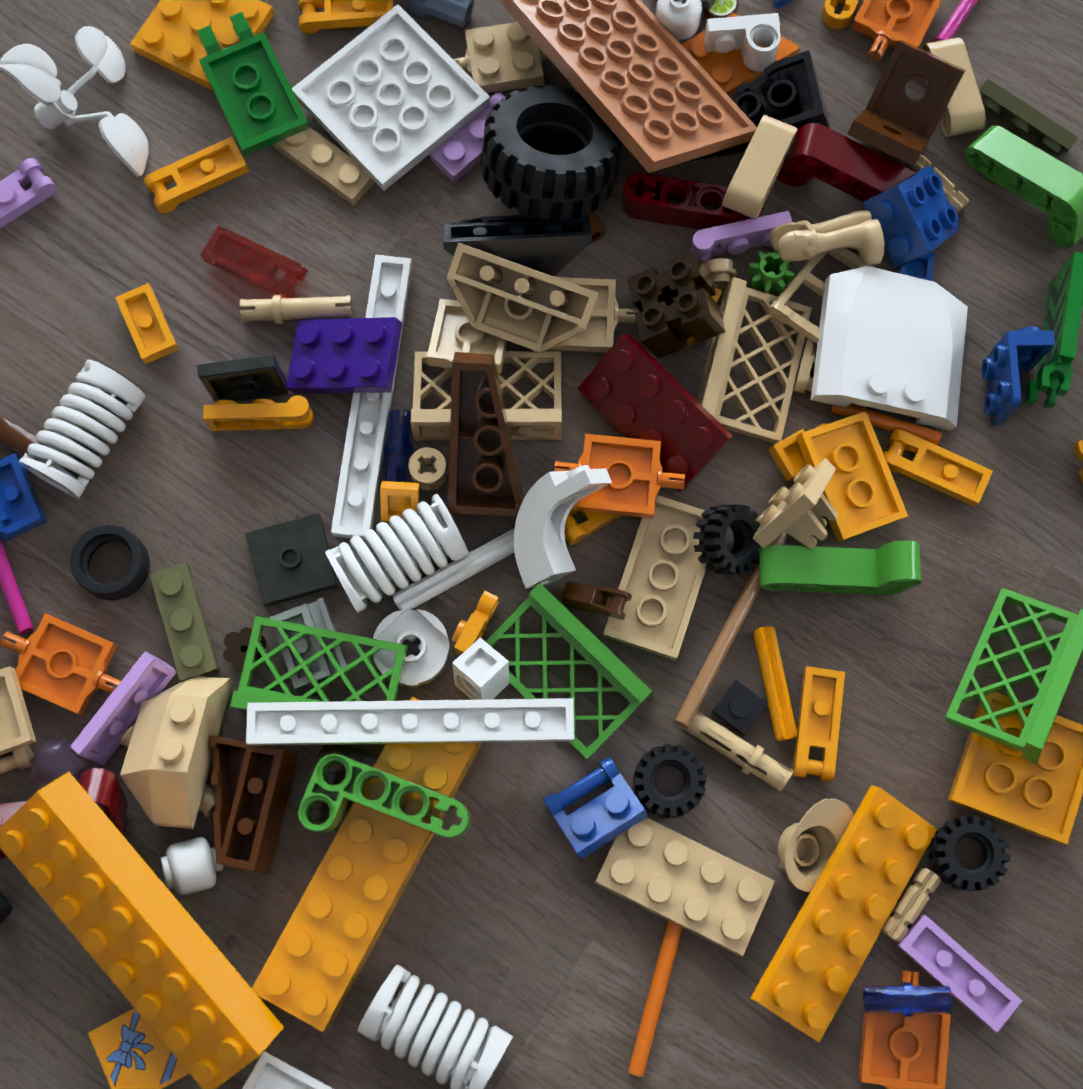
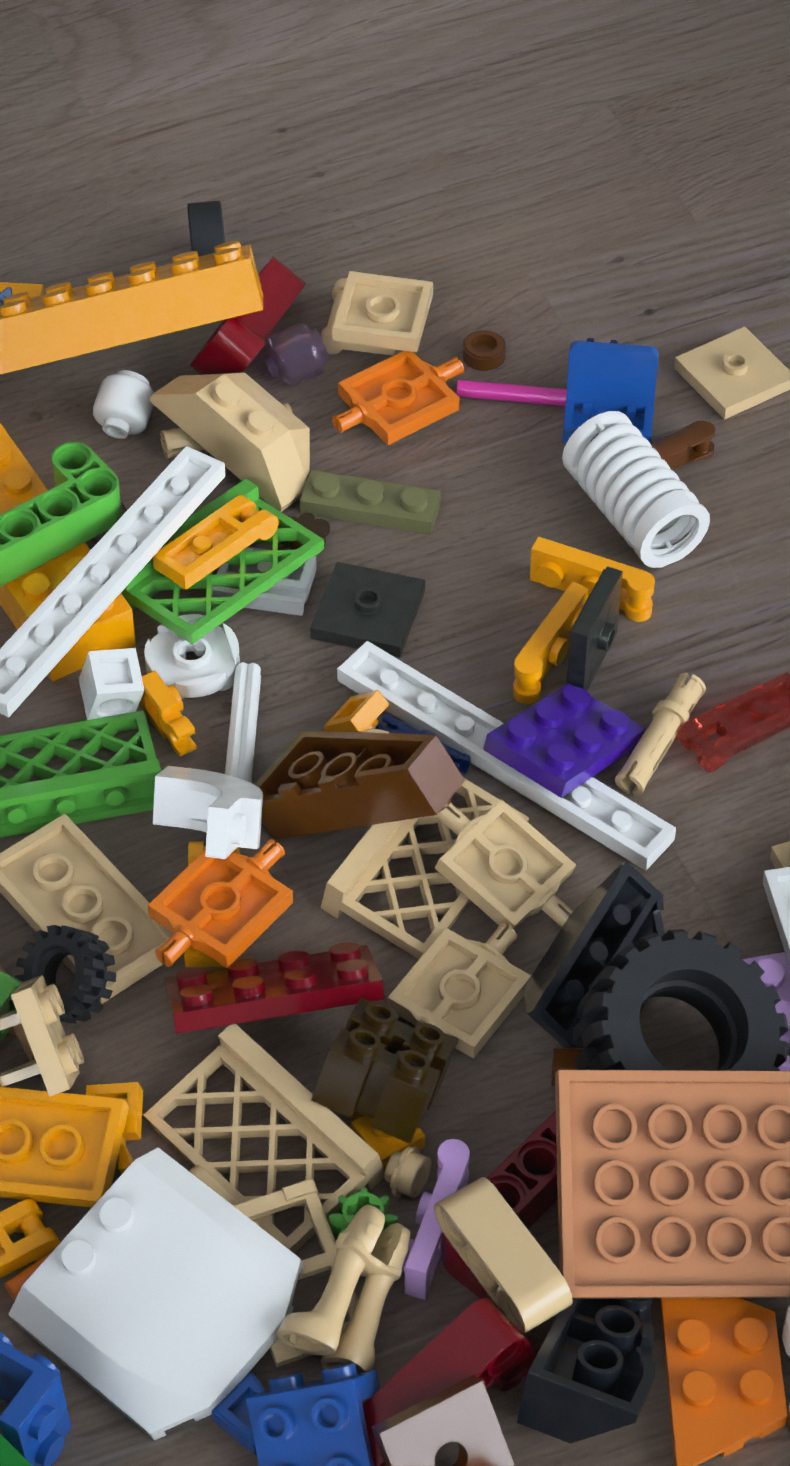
camera: 120 degrees right, 25 degrees down
(88, 545) = (476, 490): black tyre -> none
(121, 708) = (312, 405): lavender plate -> none
(147, 323) = (734, 600): light orange plate -> none
(181, 419) = (560, 564): none -> light orange plate
(249, 801) = (134, 446): reddish brown wedge -> none
(310, 680) = (214, 541): none -> light orange plate
(395, 550) = (294, 669): white piece -> none
(518, 300) = (510, 906): tan wedge -> none
(594, 599) = (104, 822): reddish brown bar -> none
(745, 34) = (717, 1368): white plate -> none

